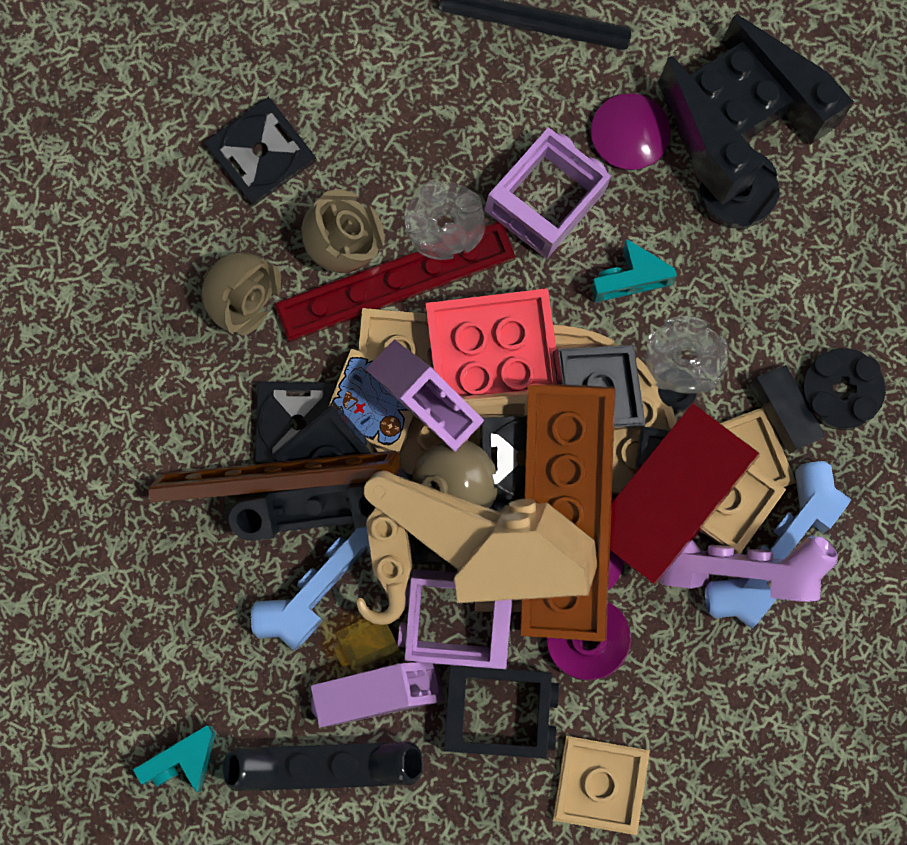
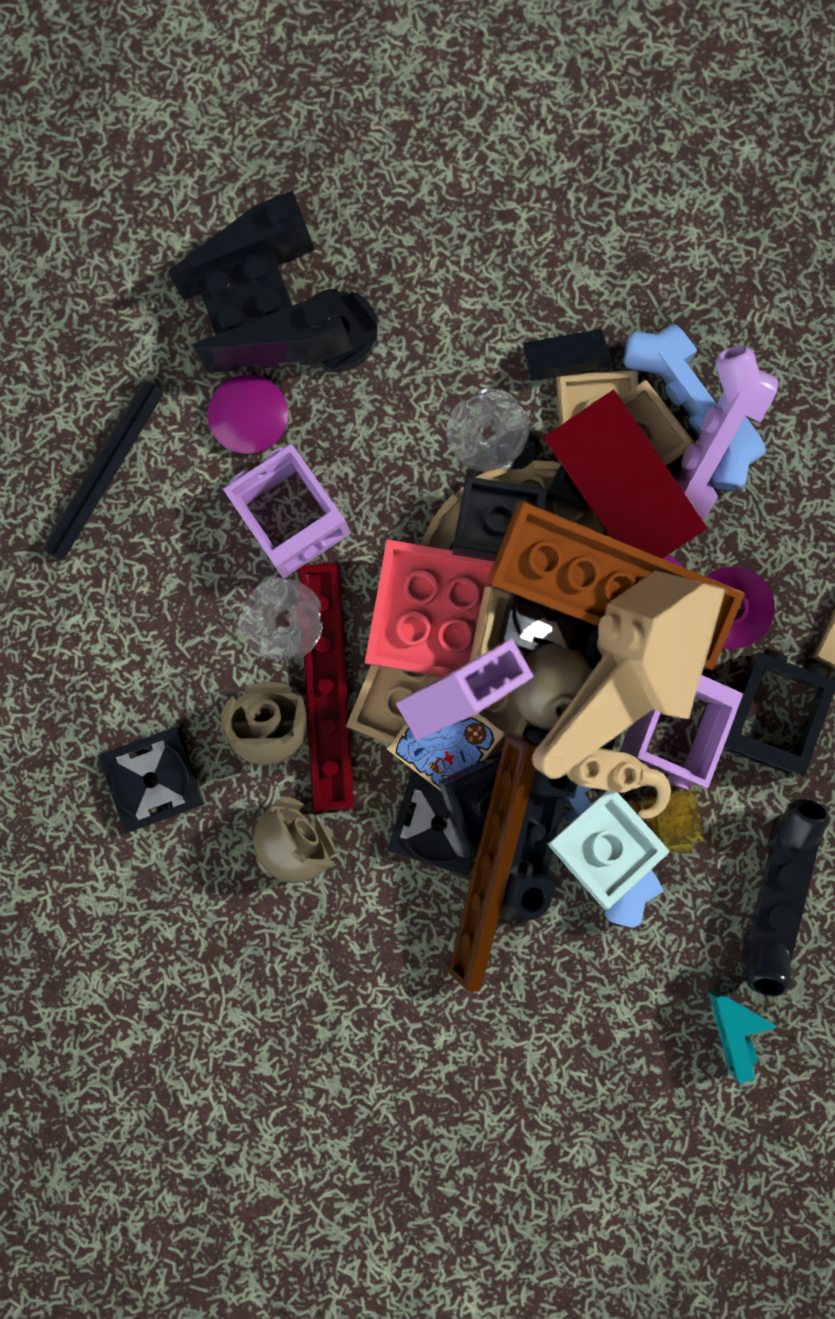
camera: 70 degrees left, 5 degrees up
(318, 579) = (608, 848): none -> light aqua tile
(376, 693) = (730, 826): lavender slope -> none
(643, 274) = (393, 446): teal slope -> none
(862, 374) = (567, 275): black plate -> none

